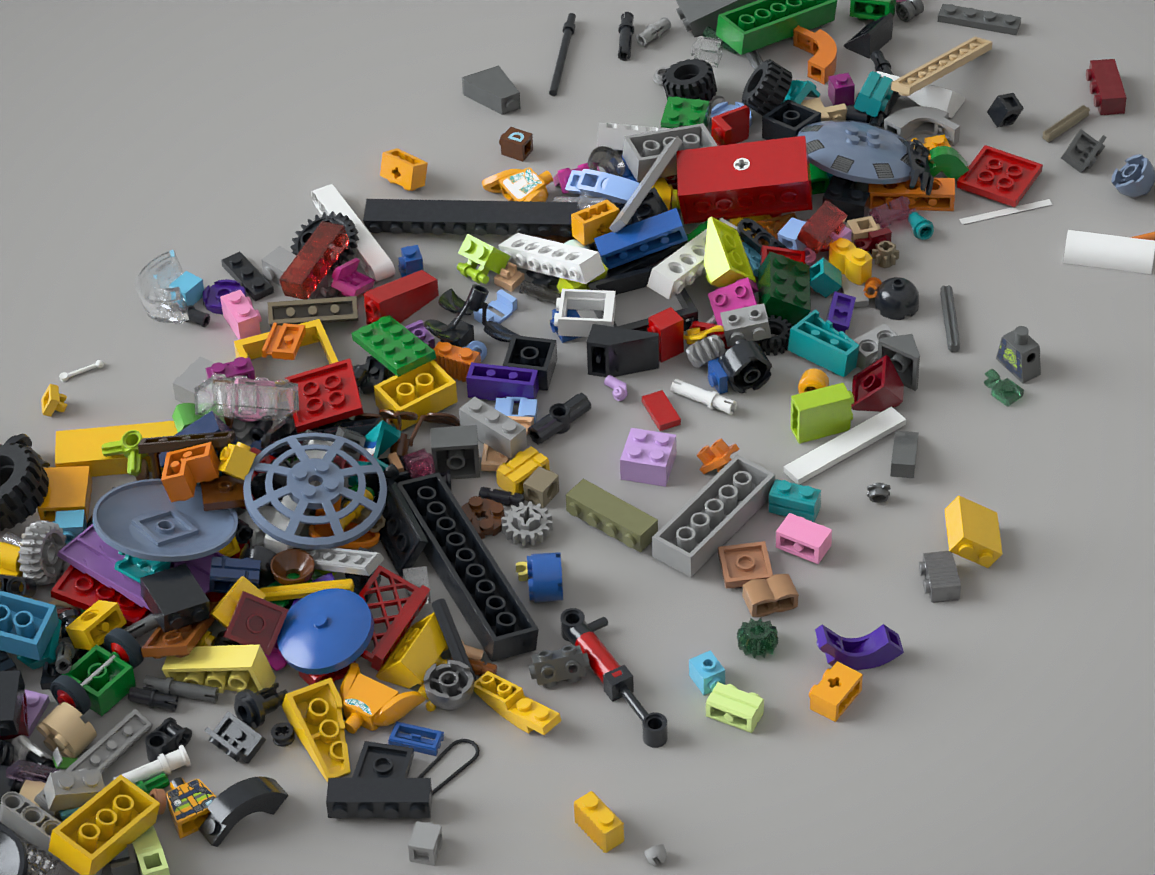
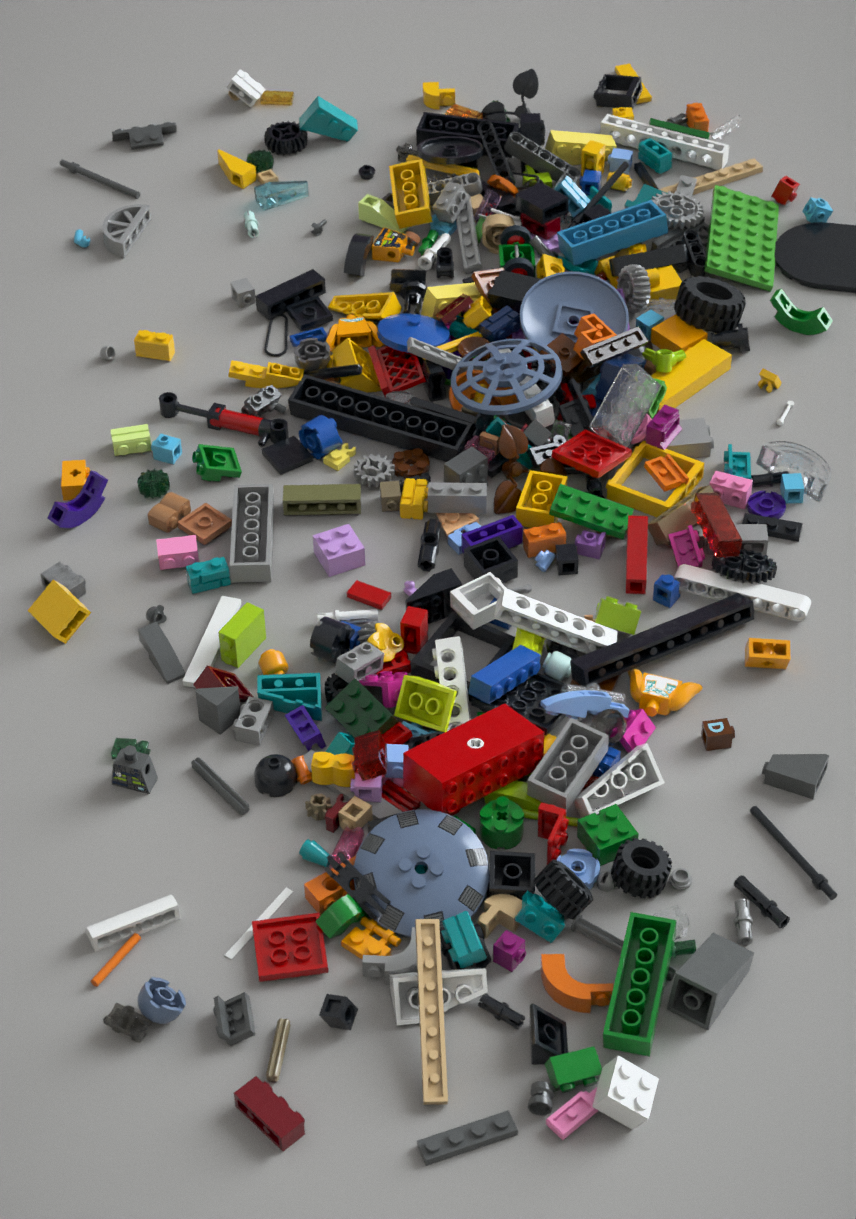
camera: 140 degrees right, 0 degrees up
(201, 336) = (737, 463): none -> teal bracket
(236, 460) = (567, 349): yellow brick -> none
(474, 302) = (568, 534): black plant -> none
(505, 304) = (569, 592): light blue piece -> none
(591, 597) = (287, 455): none -> black tile
(593, 221) = (555, 669): light orange brick -> none
(646, 185) = (538, 695): light grey tile -> none
(672, 622) = (216, 462): none -> green plate
(716, 456) = (285, 571): orange hips -> none

